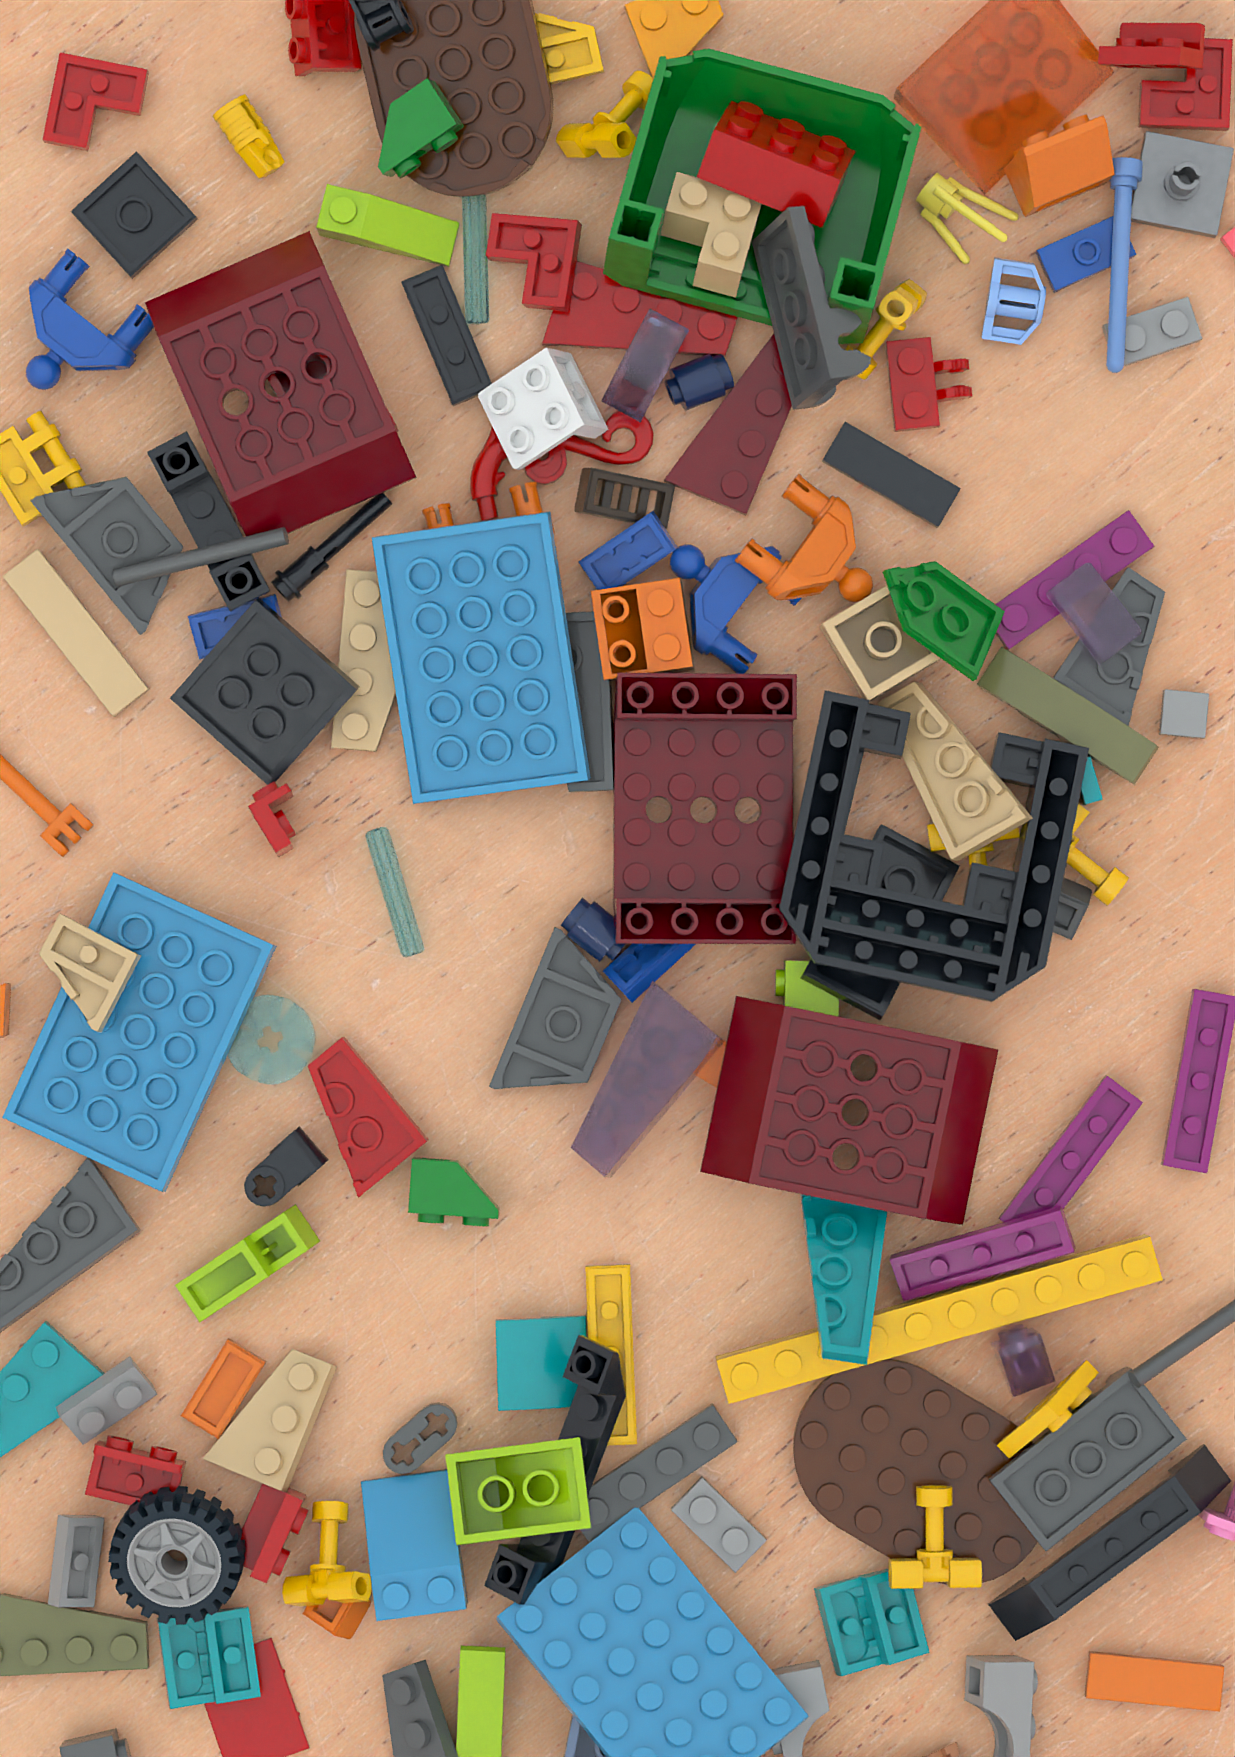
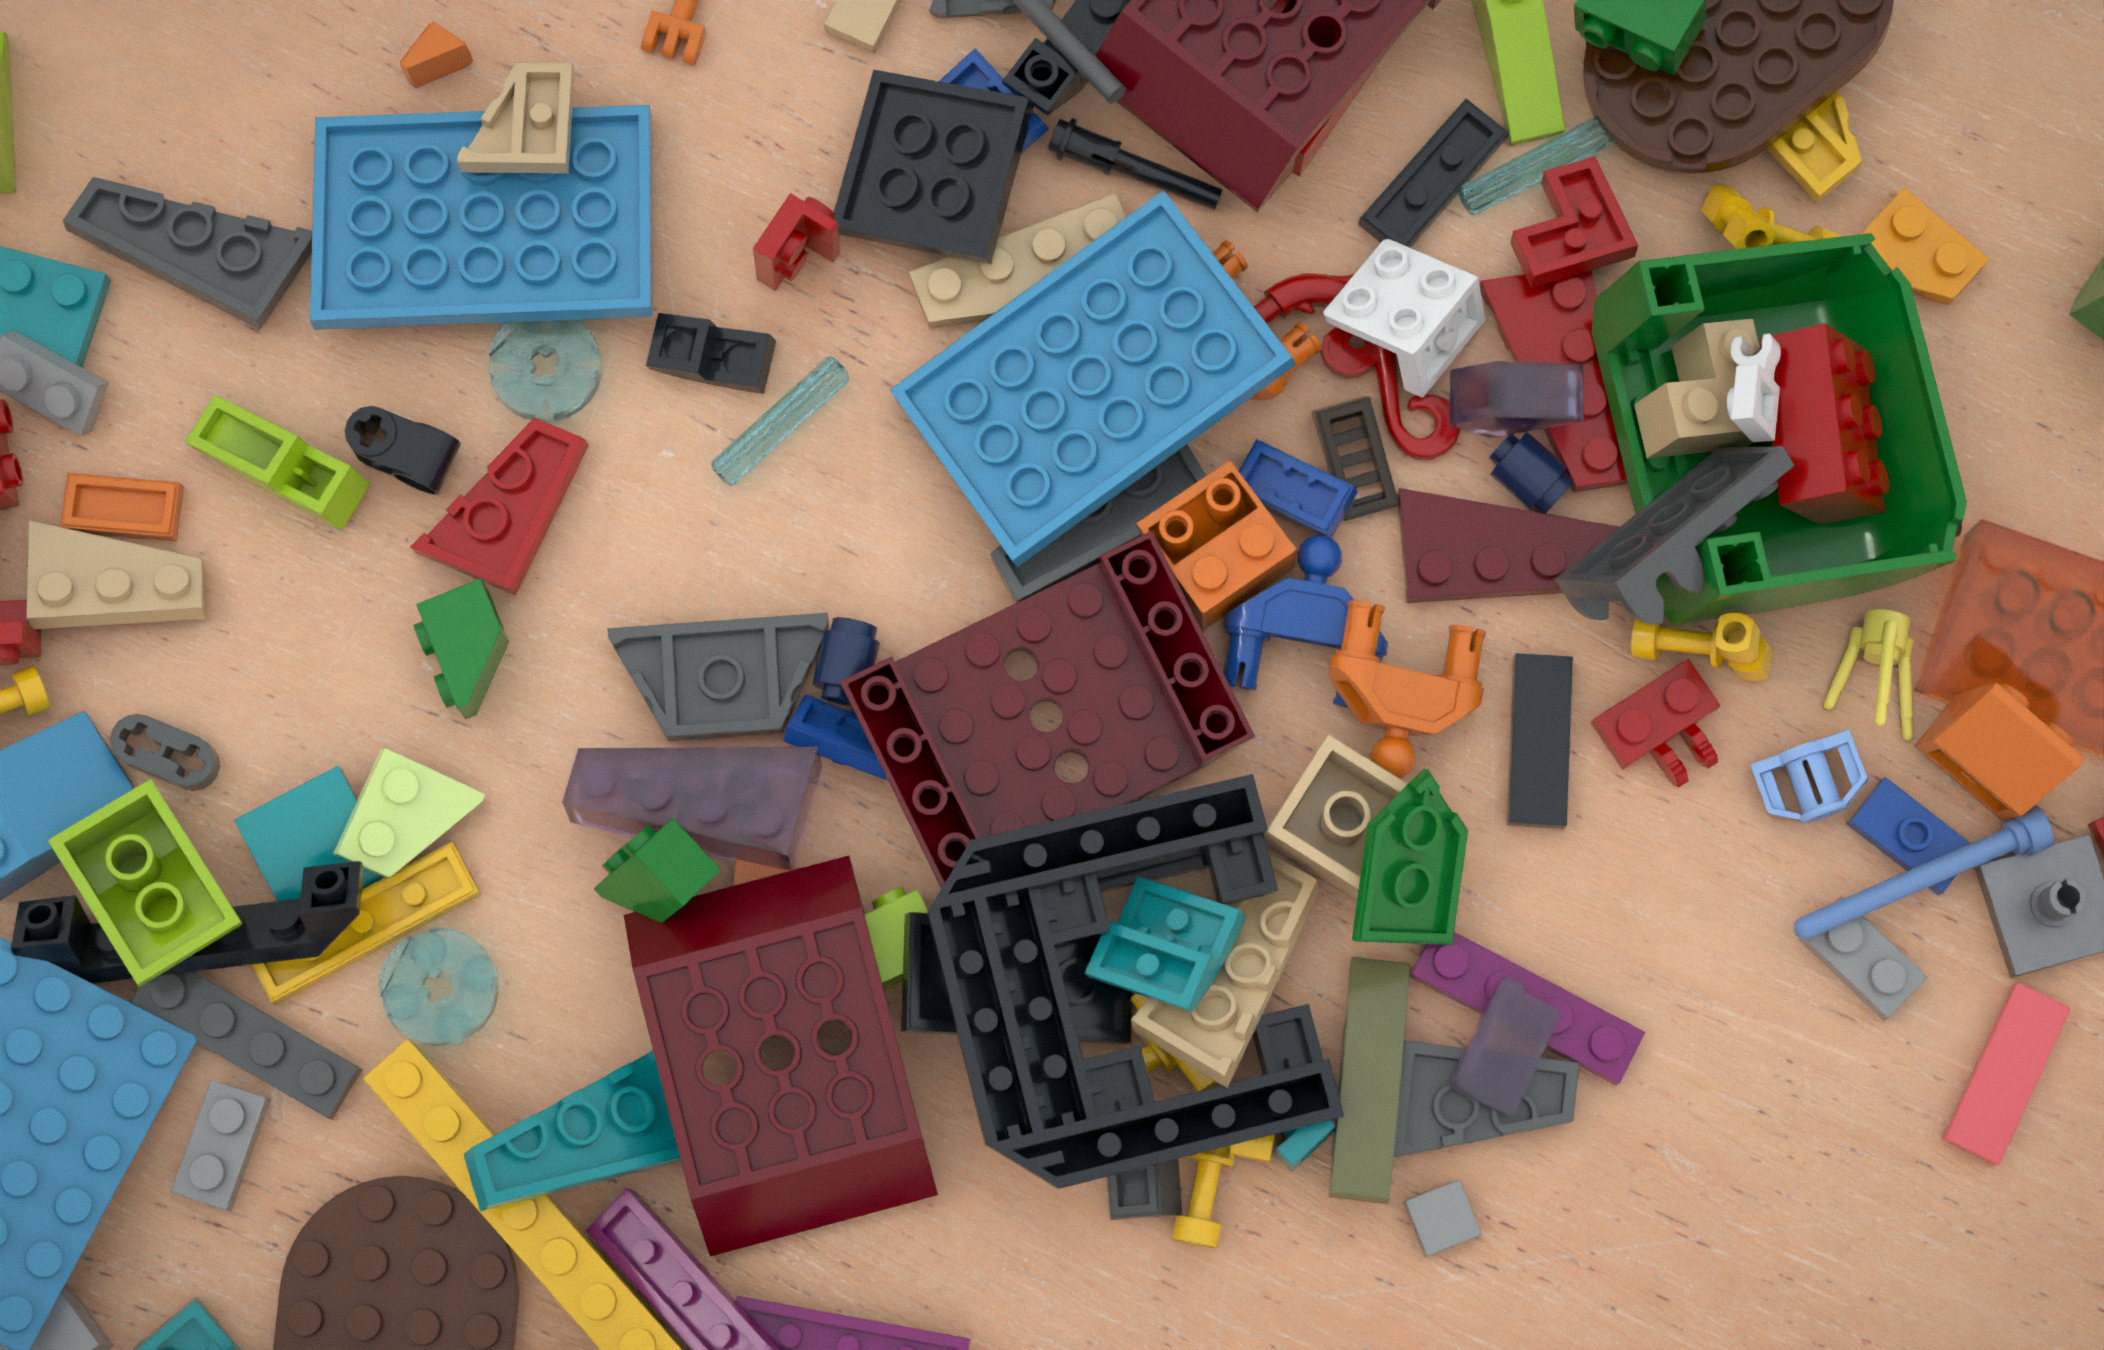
camera: 65 degrees right, 10 degrees down
(319, 917) = (711, 354): none -> black slope
(551, 1292) = (402, 813): none -> yellowish green wing
(684, 1349) = (451, 1018): none -> clear light blue plate
(686, 1135) = (657, 872): none -> green slope
(738, 203) = (1755, 393): none -> white plate
(910, 809) = (1166, 944): none -> teal slope

